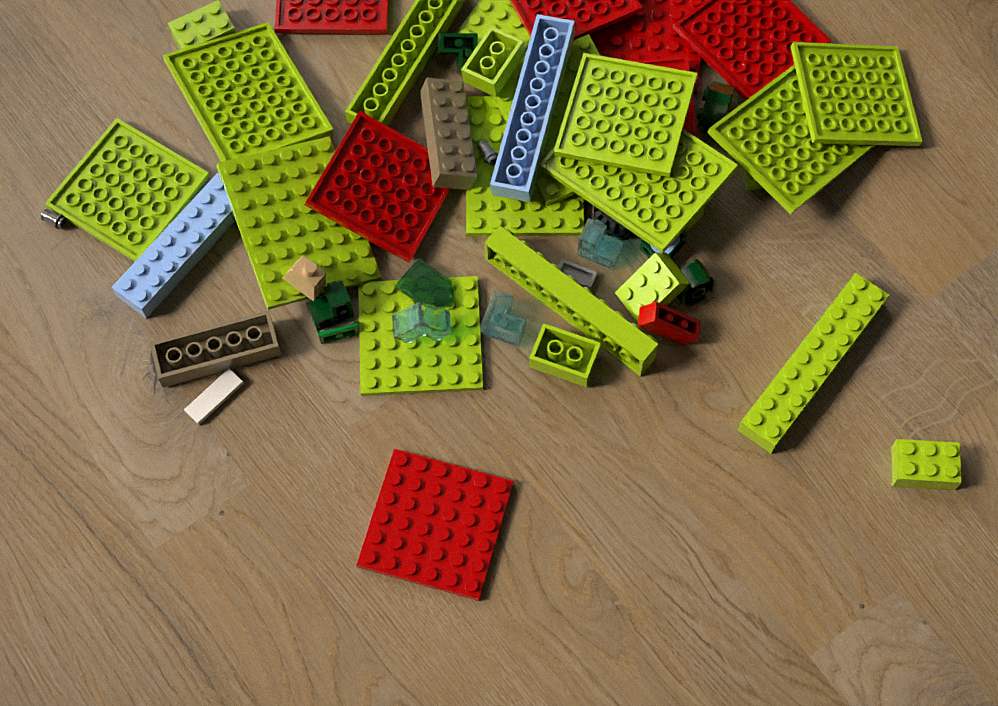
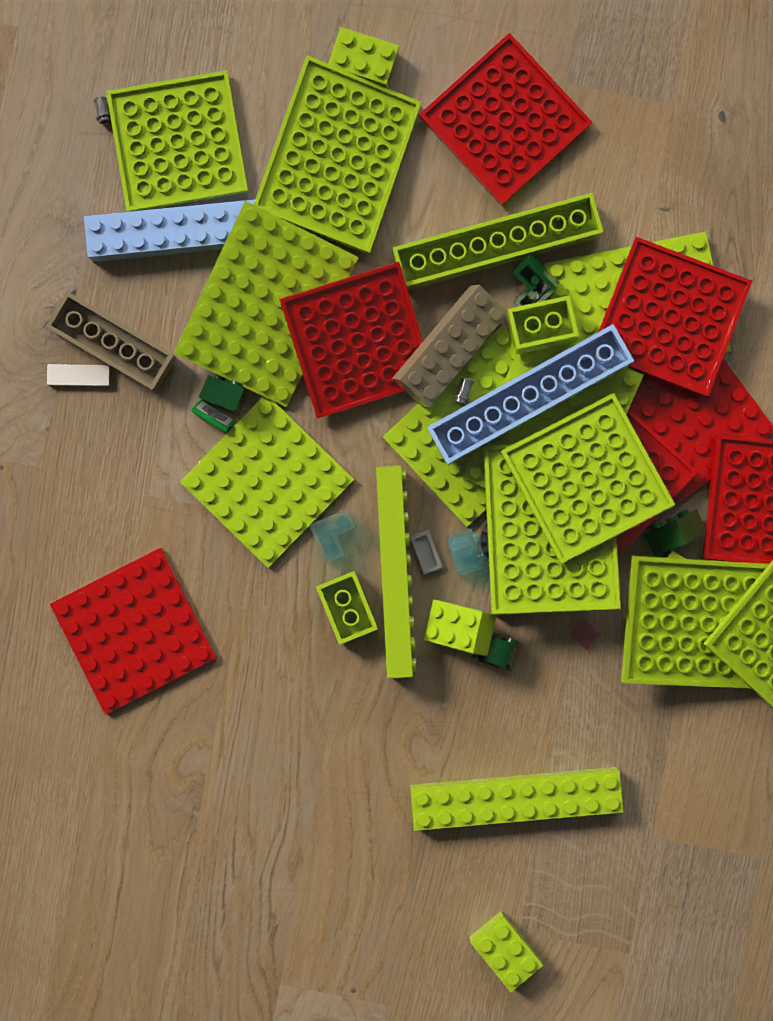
camera: 45 degrees right, 20 degrees up
(306, 277) = (218, 359): tan torso -> none
(420, 321) = (268, 480): clear light blue brick -> none
(427, 285) = (308, 451): clear green tile -> none
(669, 323) = (441, 666): red brick -> none
(735, 222) = (585, 634): none -> clear pink tile

